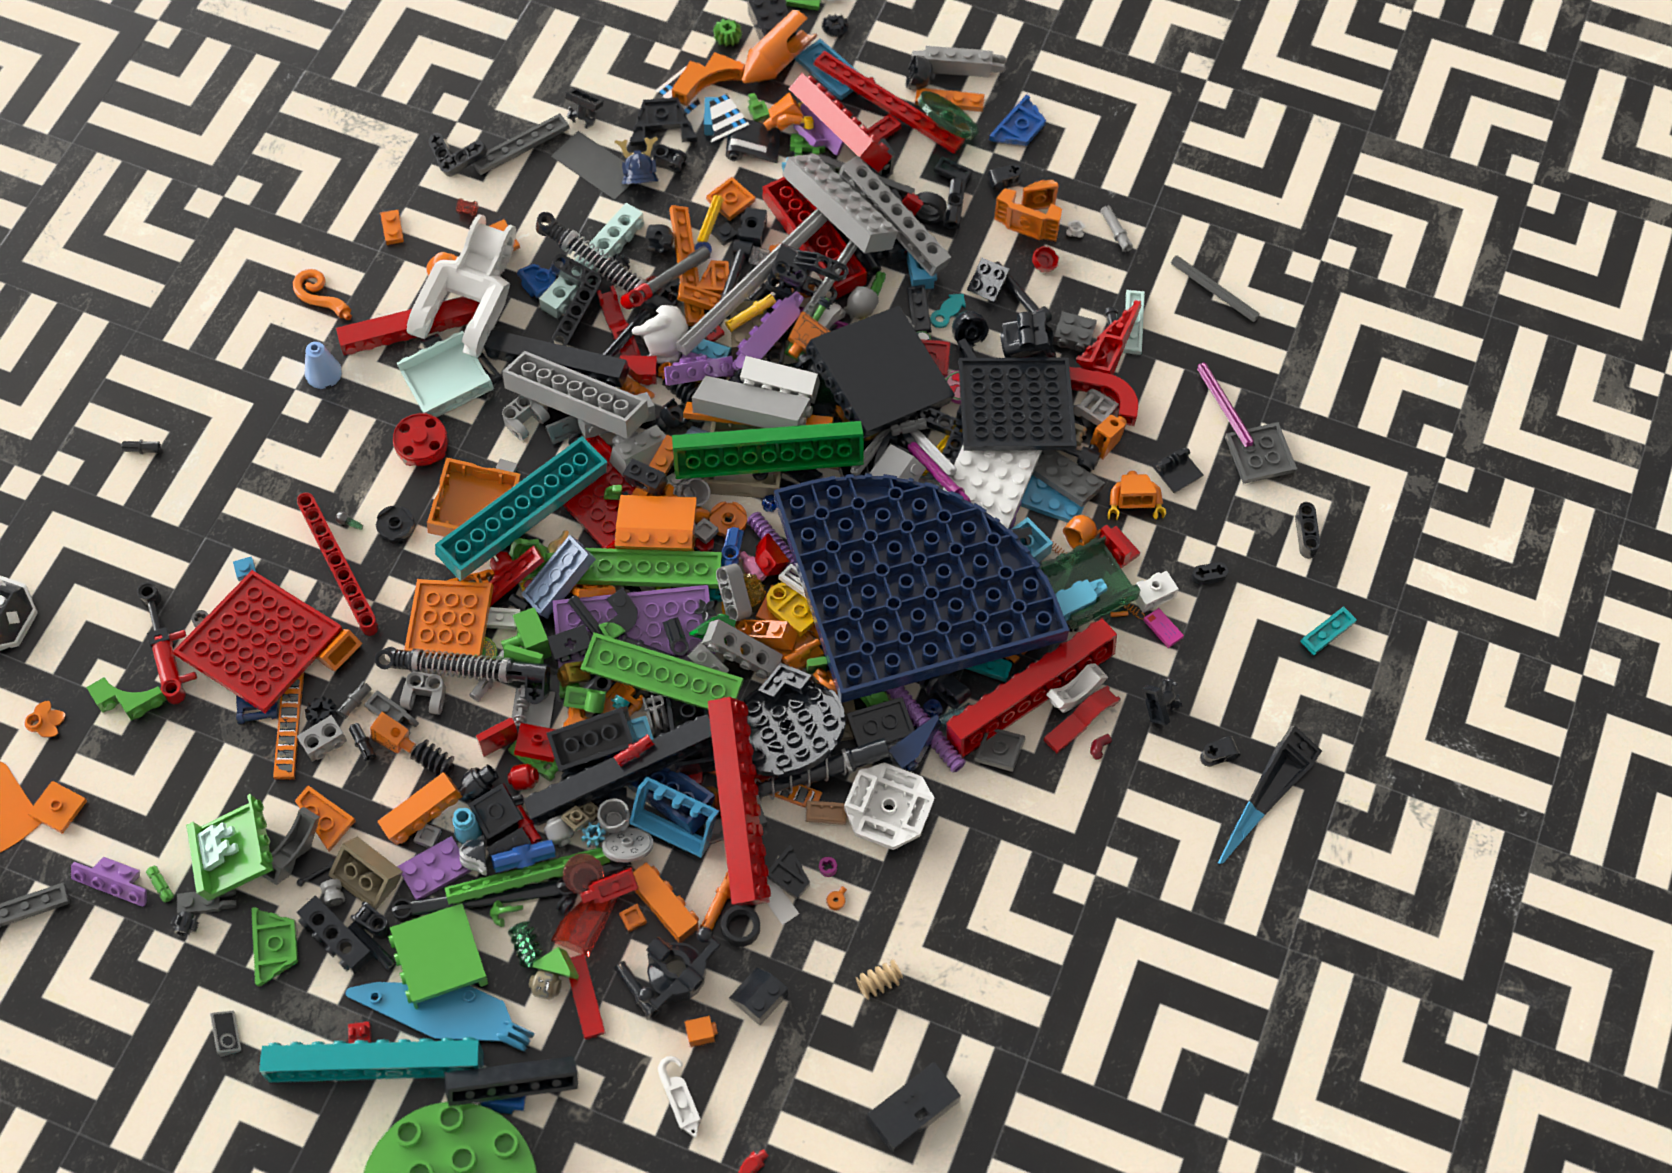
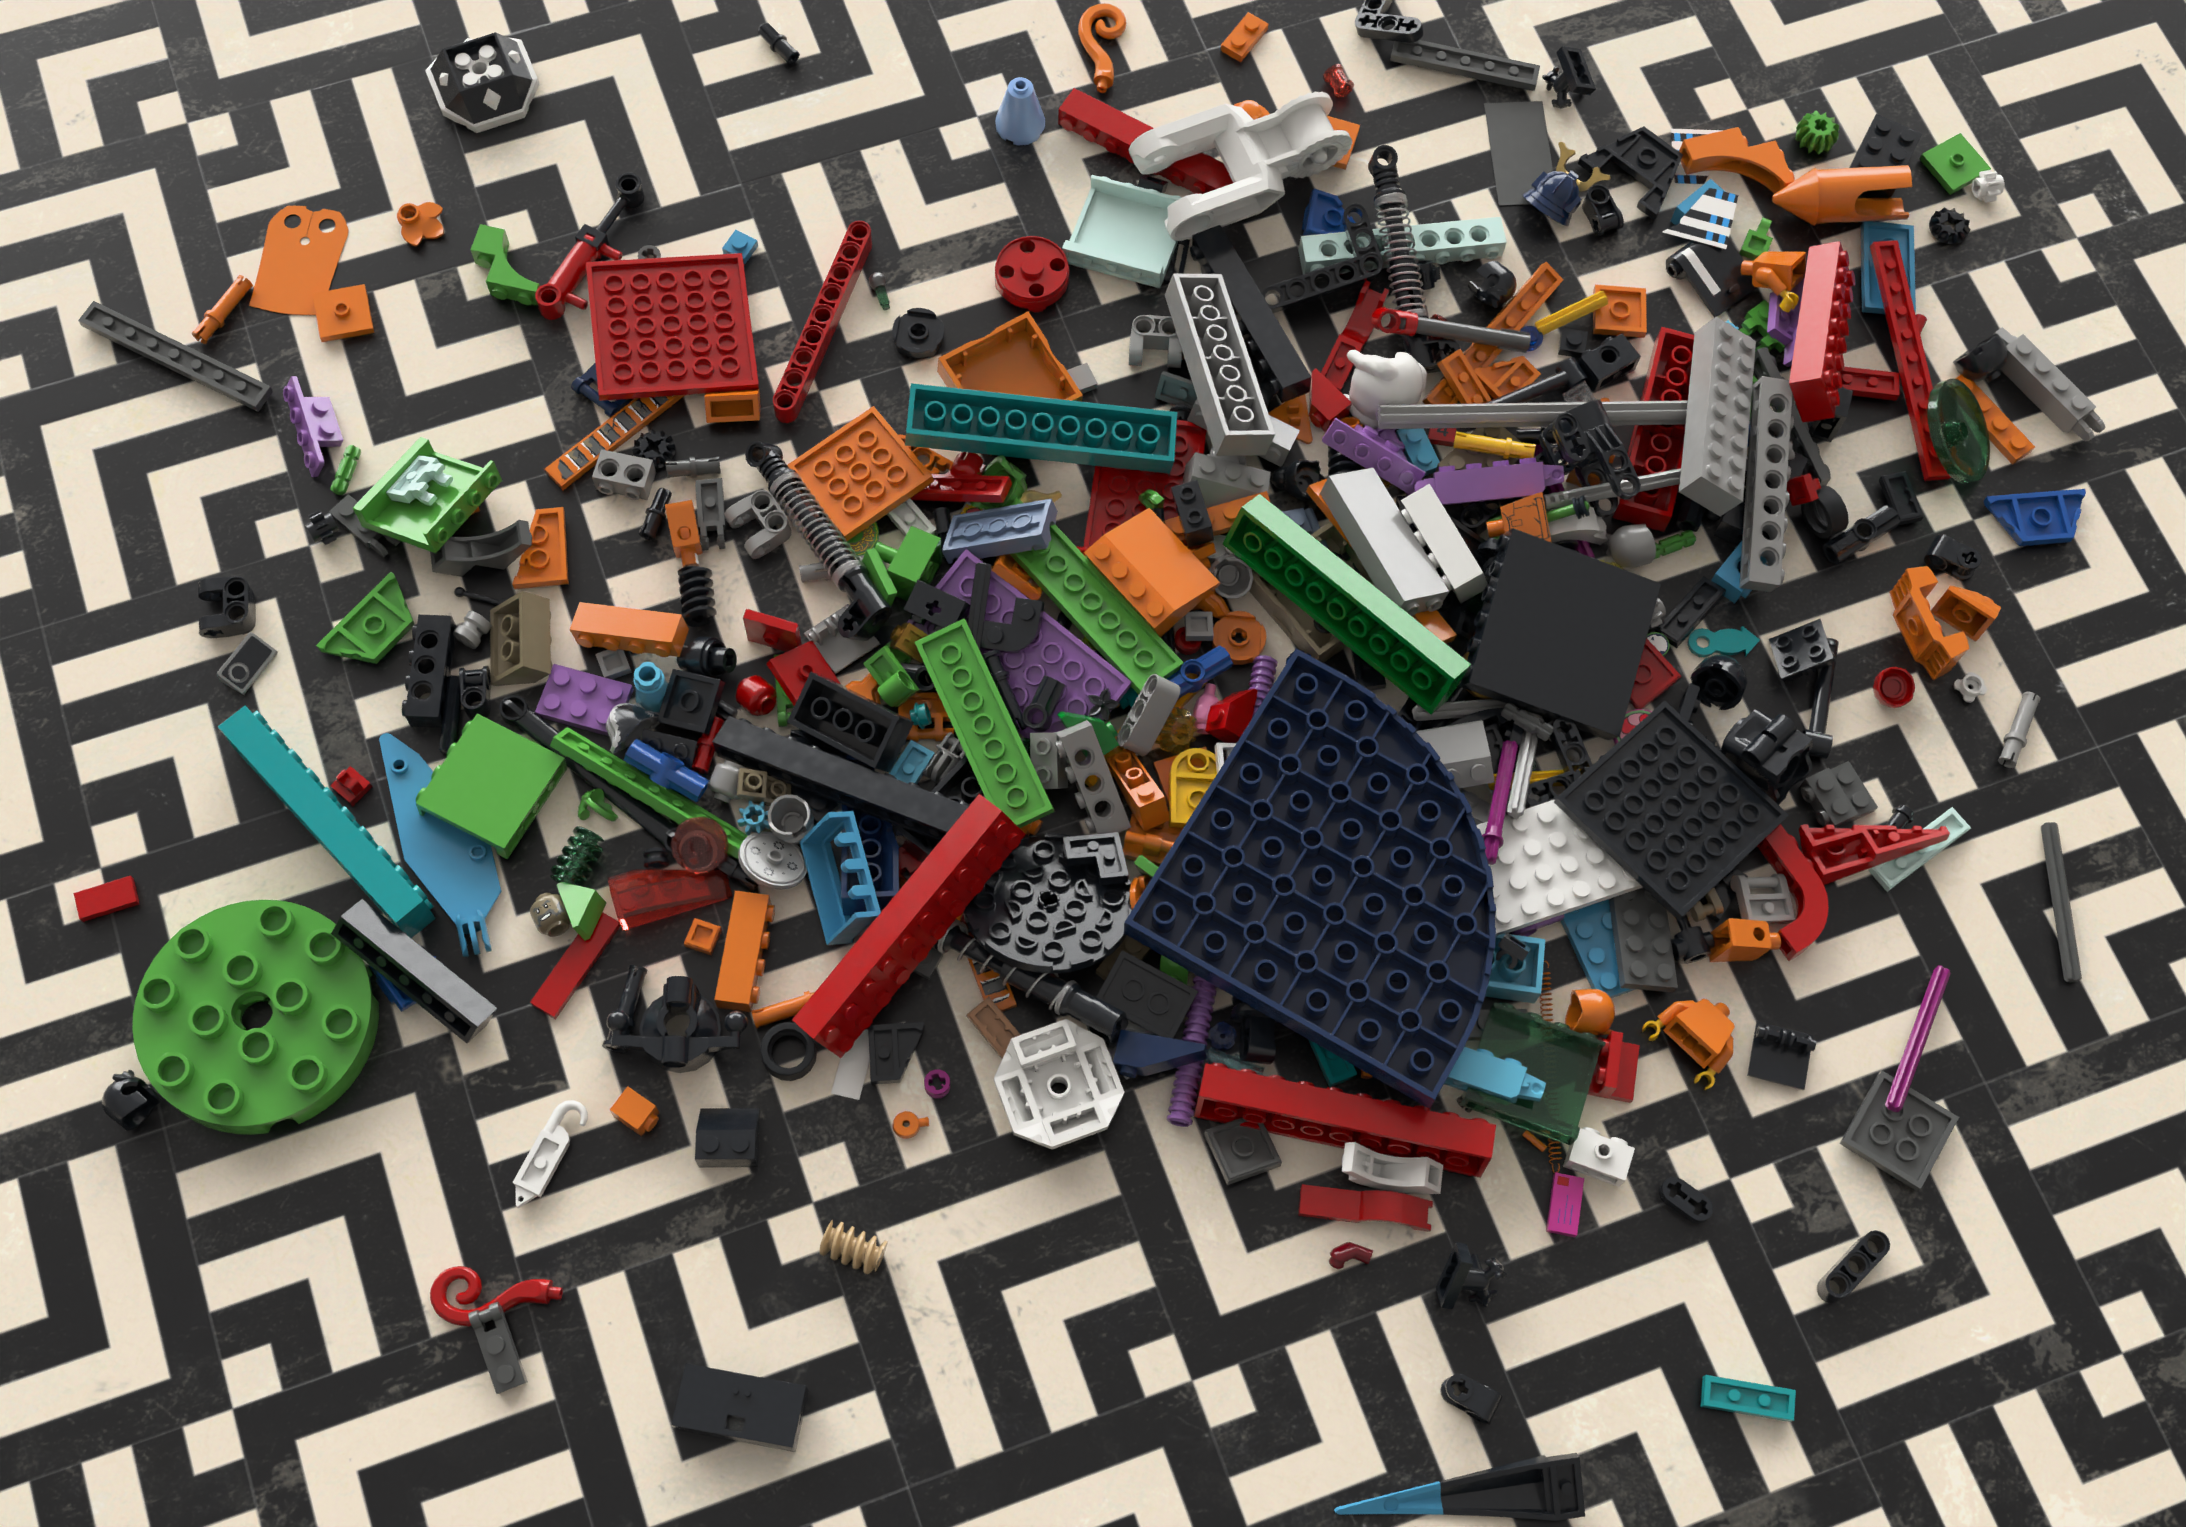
camera: 45 degrees right, 5 degrees up
(187, 1005) = (233, 606): none -> black piece
(611, 629) = (986, 633): bright green tile -> none
(611, 887) = (707, 884): red hinge -> none
(622, 339) = (1339, 353): black axle -> none
(633, 750) = (867, 772): red pin -> none

